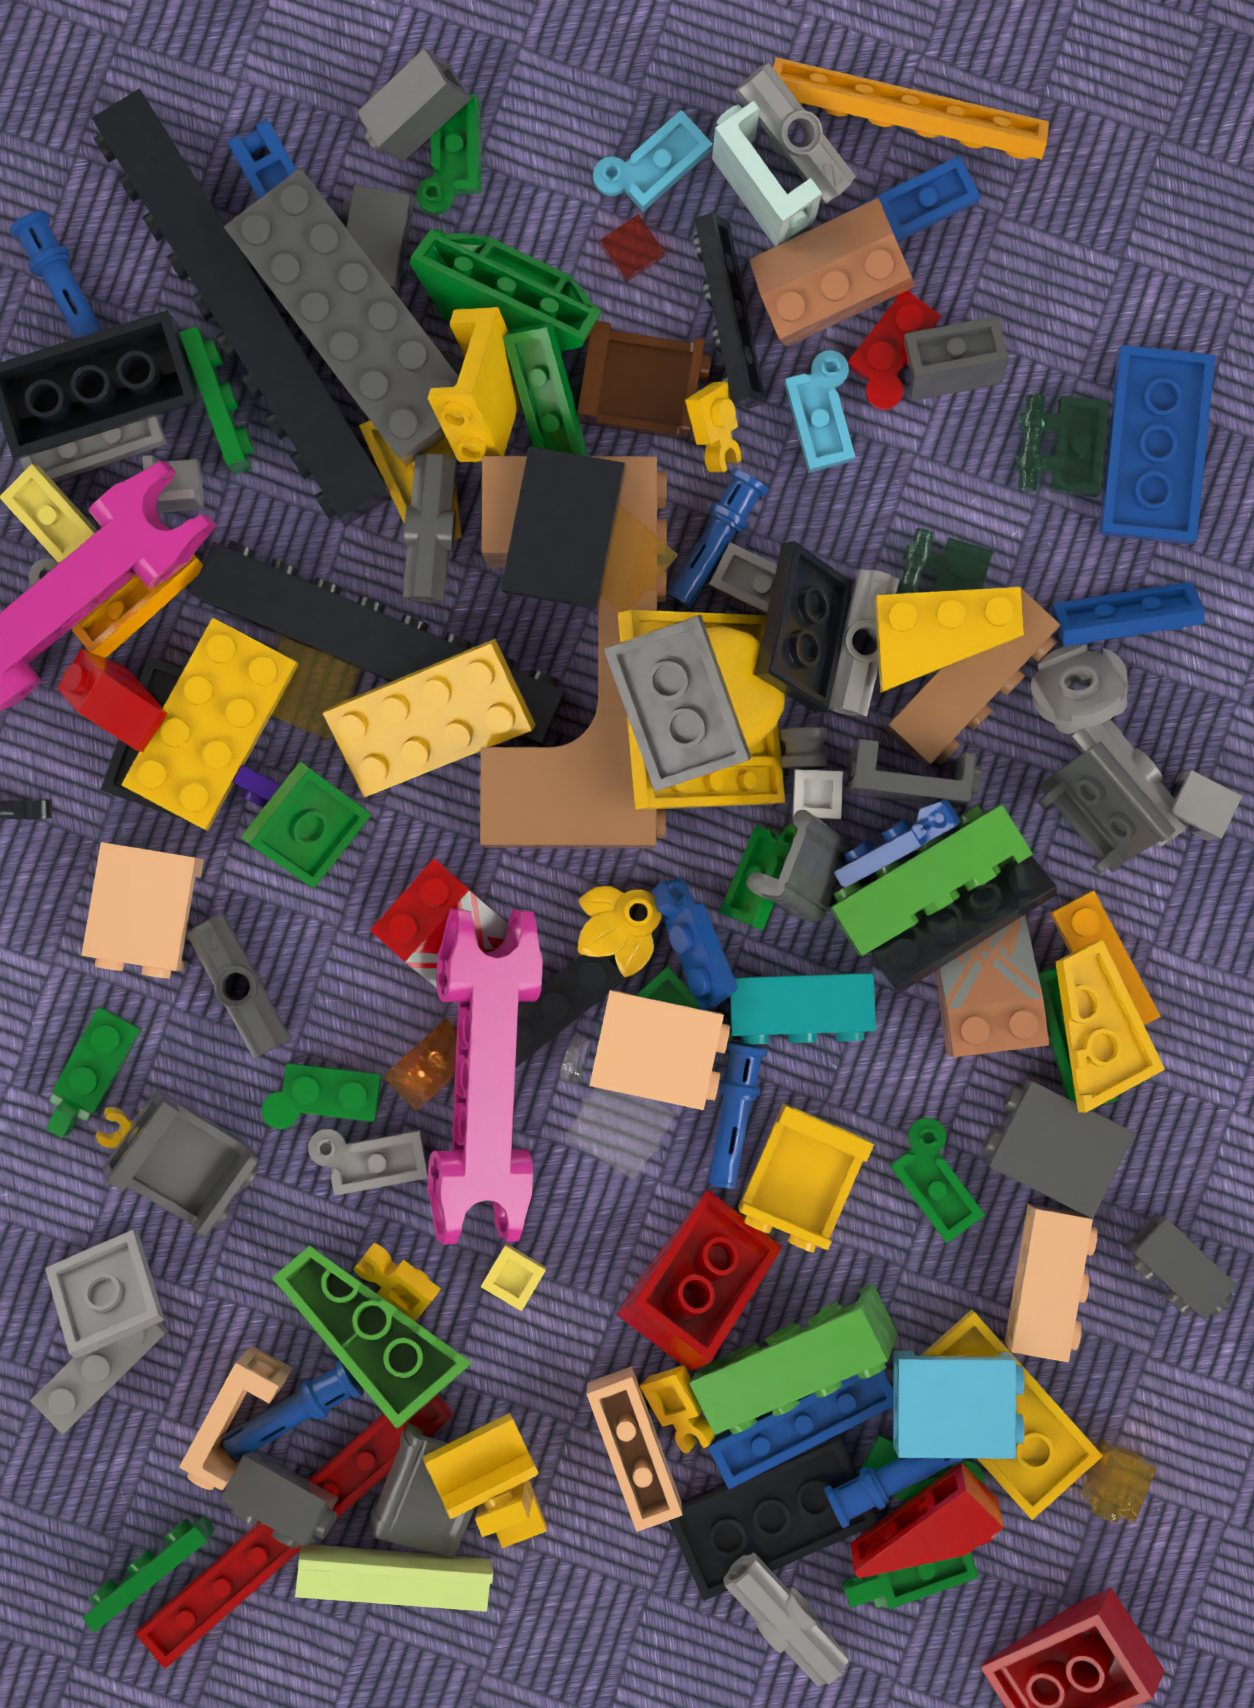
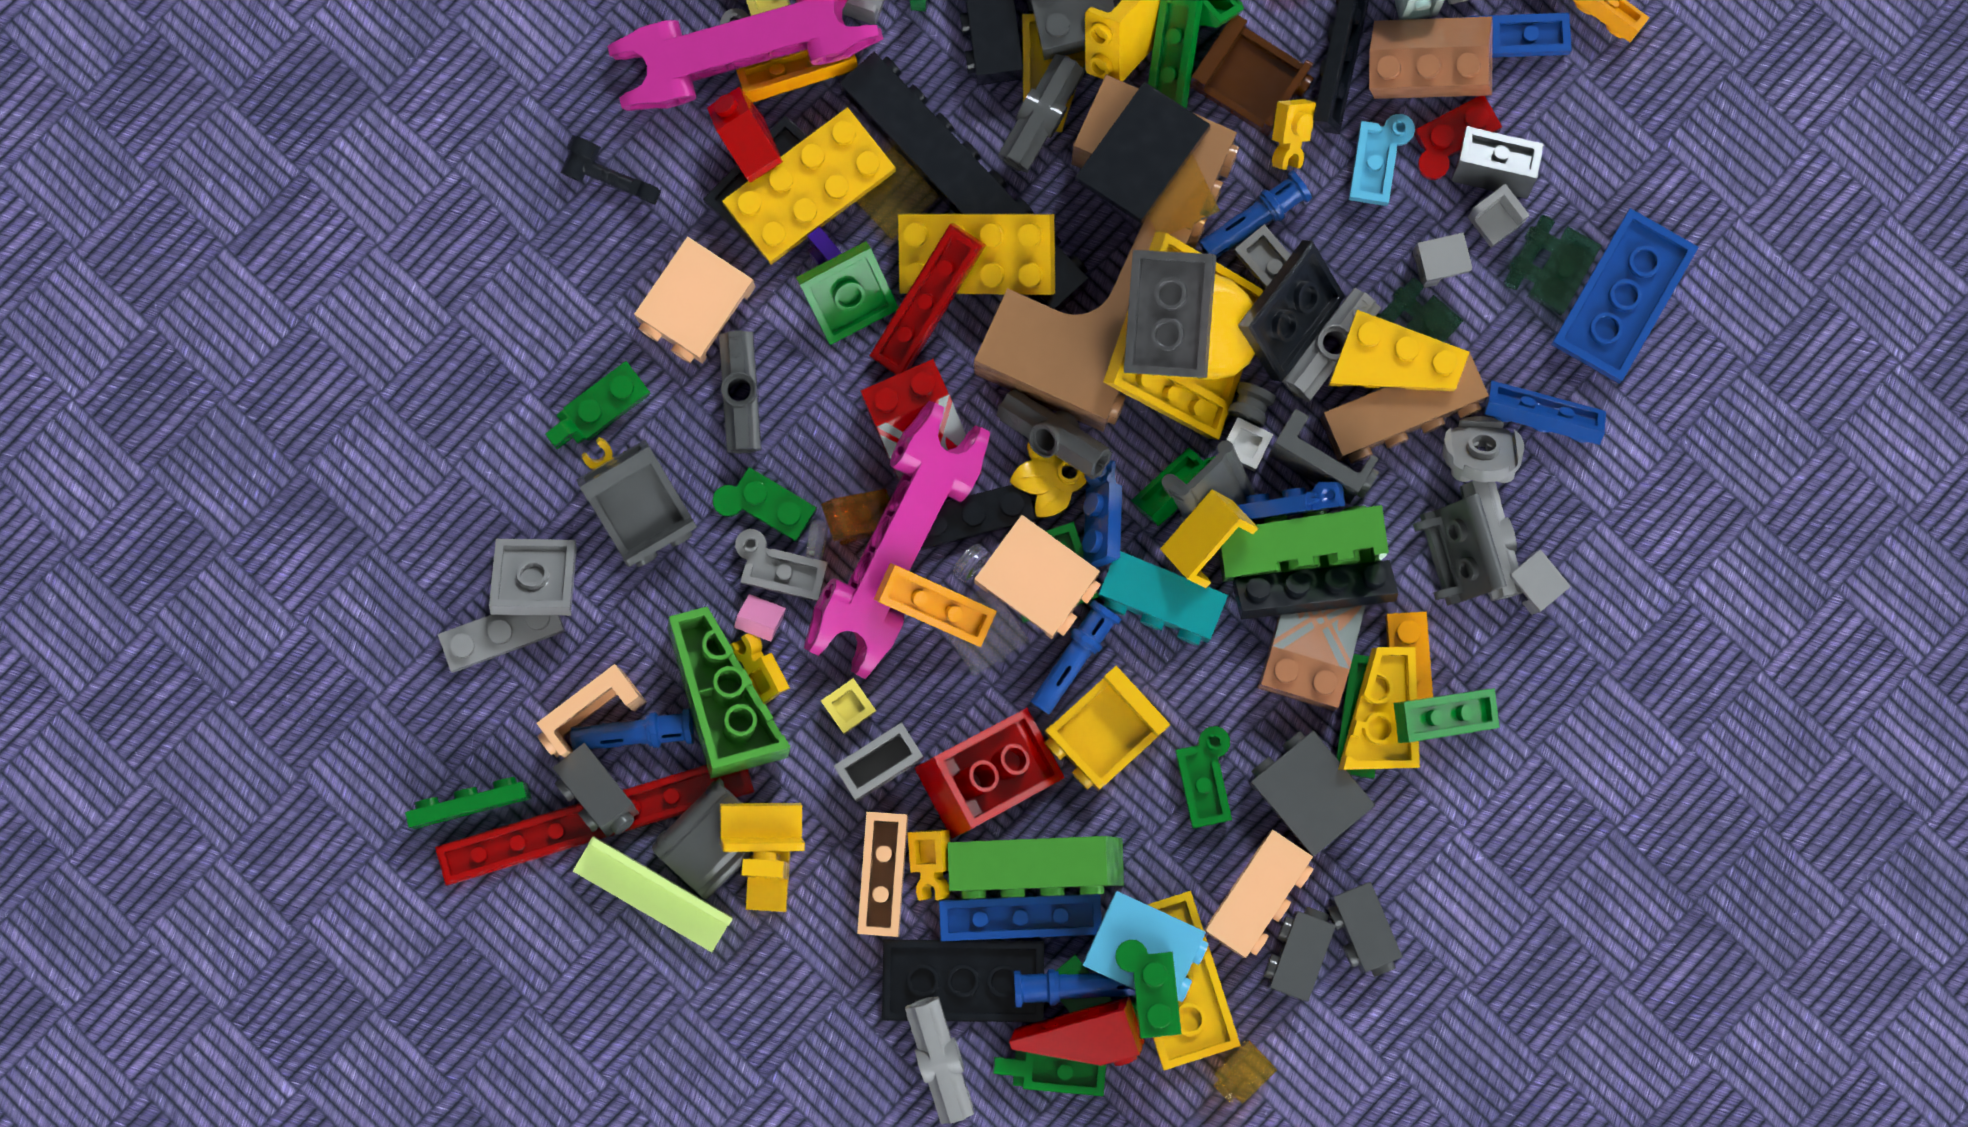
camera: 20 degrees right, 5 degrees down
(373, 1224) = (759, 617): none -> bright pink tile
(397, 1112) = (817, 540): none -> clear tile
(398, 793) = (927, 299): none -> red tile
(558, 1130) = (935, 605): none -> light orange plate
(574, 1328) = (879, 762): none -> light grey brick
(604, 880) = (1054, 434): none -> dark grey piece
(822, 922) = (1204, 535): none -> yellow panel
(941, 494) = (1441, 259): none -> light grey panel
(981, 418) = (1498, 216): none -> light grey panel
(988, 1451) = (1153, 987): none -> green hinge
(1123, 1327) = (1301, 954): none -> dark grey brick
(1169, 1000) = (1446, 715): none -> green plate

